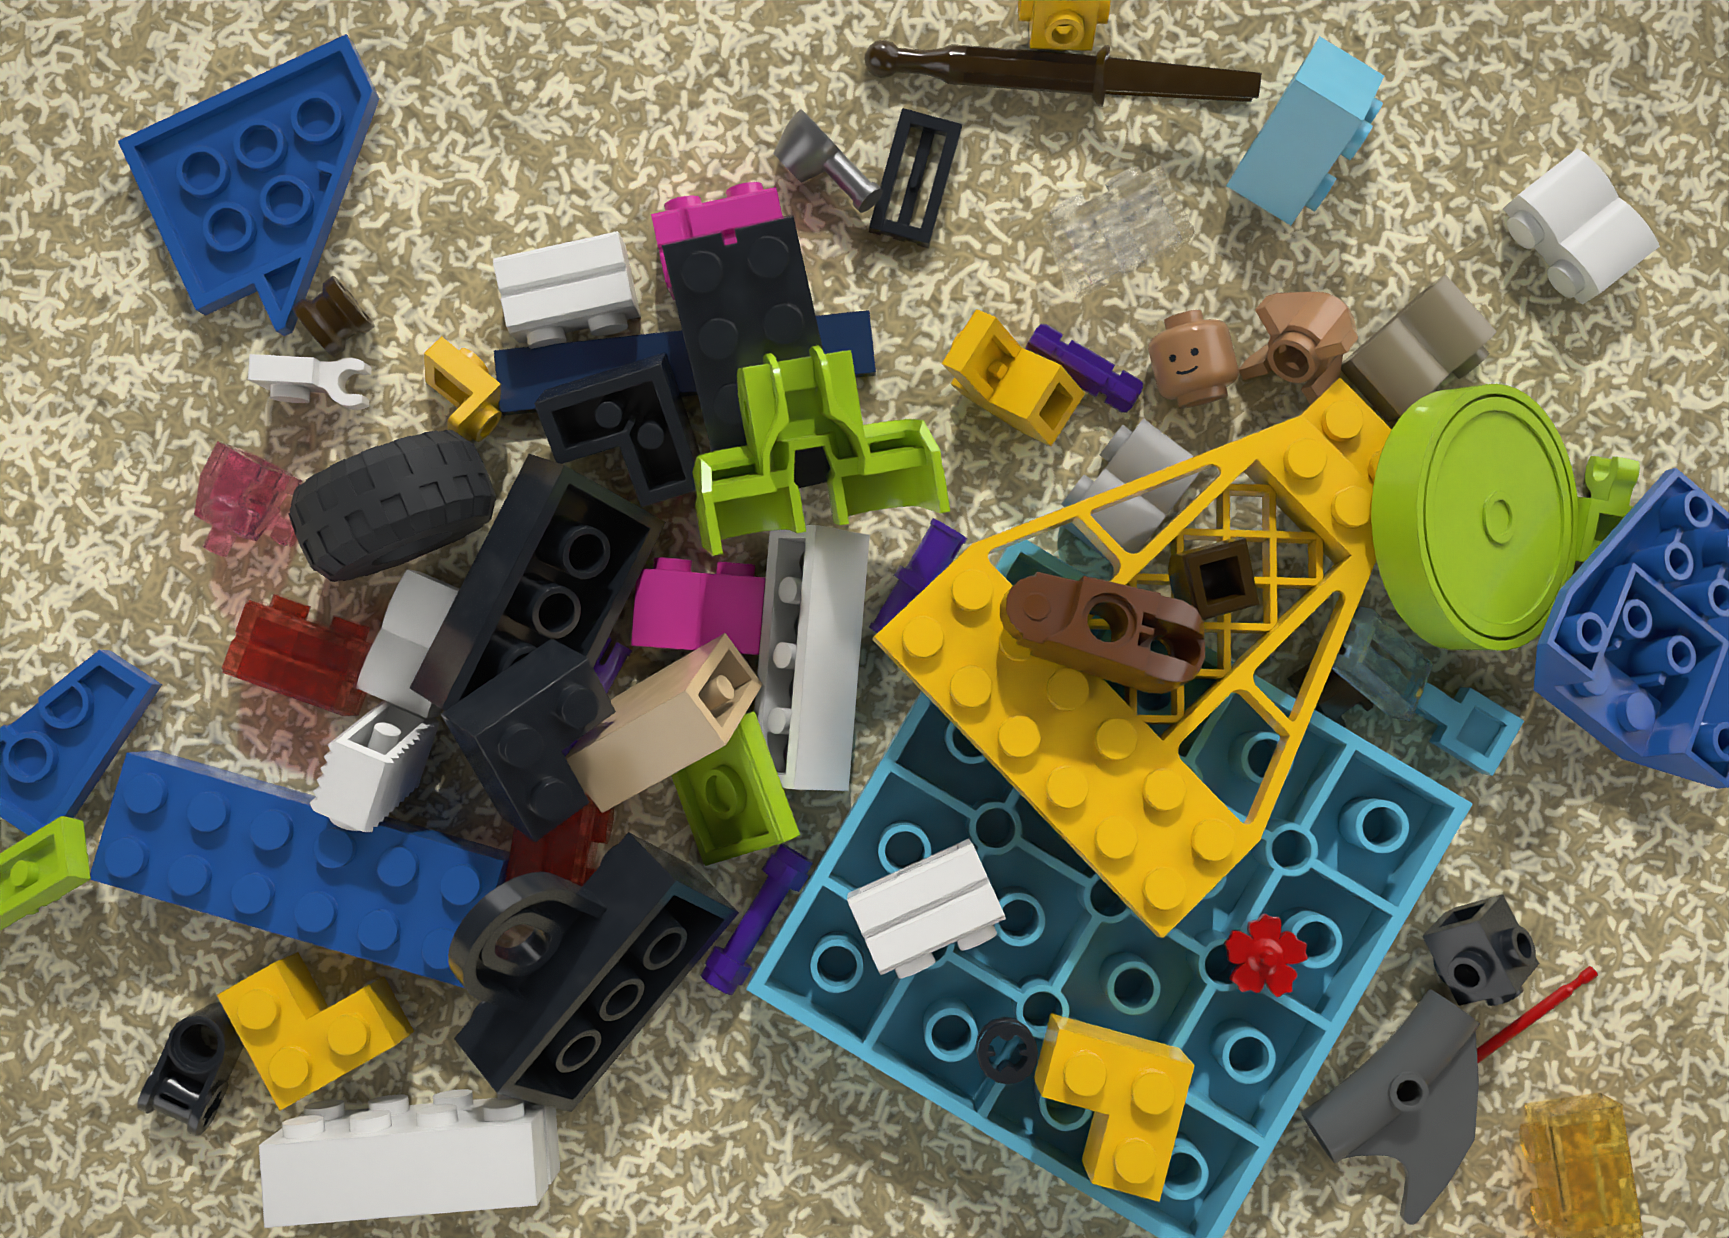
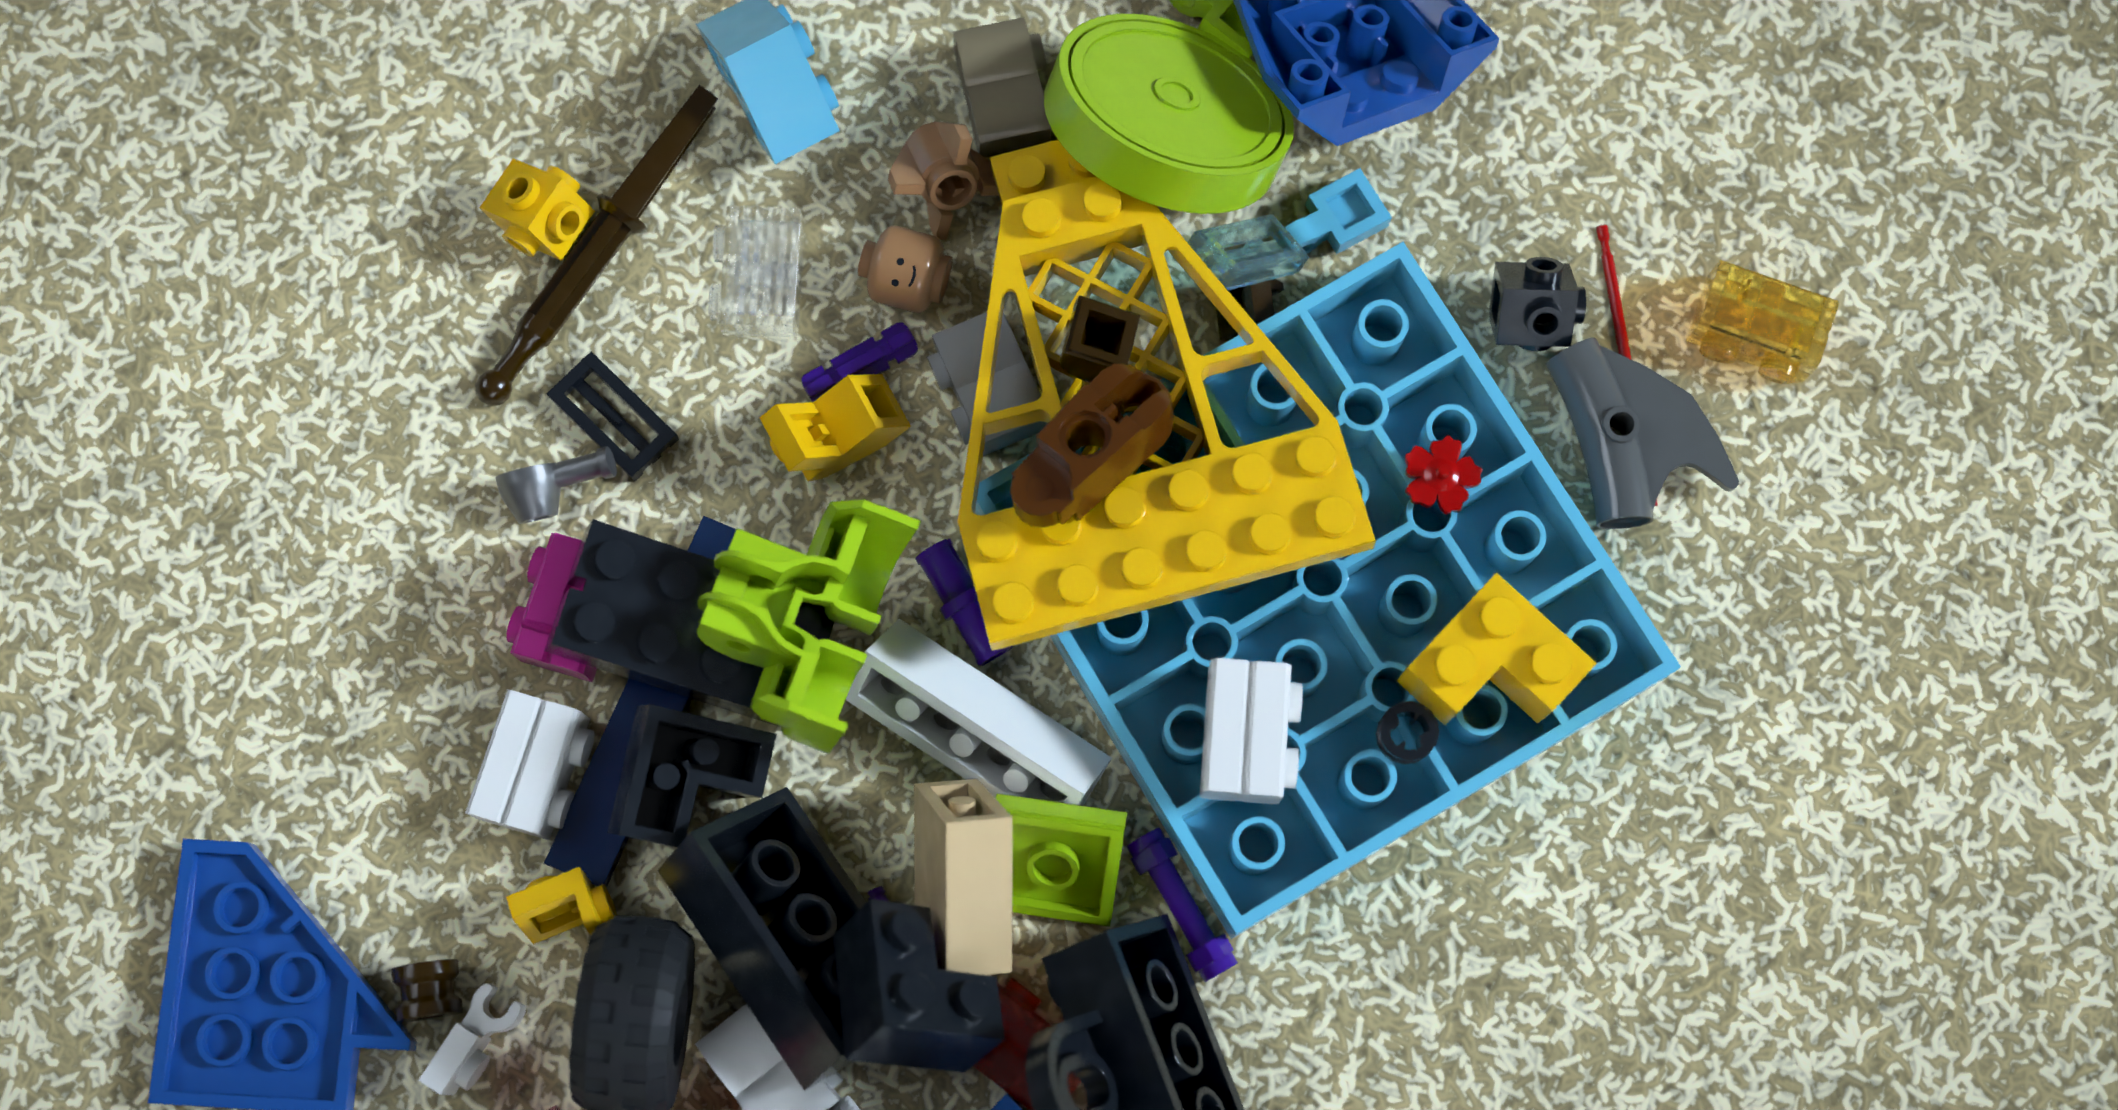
camera: 65 degrees left, 10 degrees down
(693, 608) = (876, 807): dark pink brick -> none

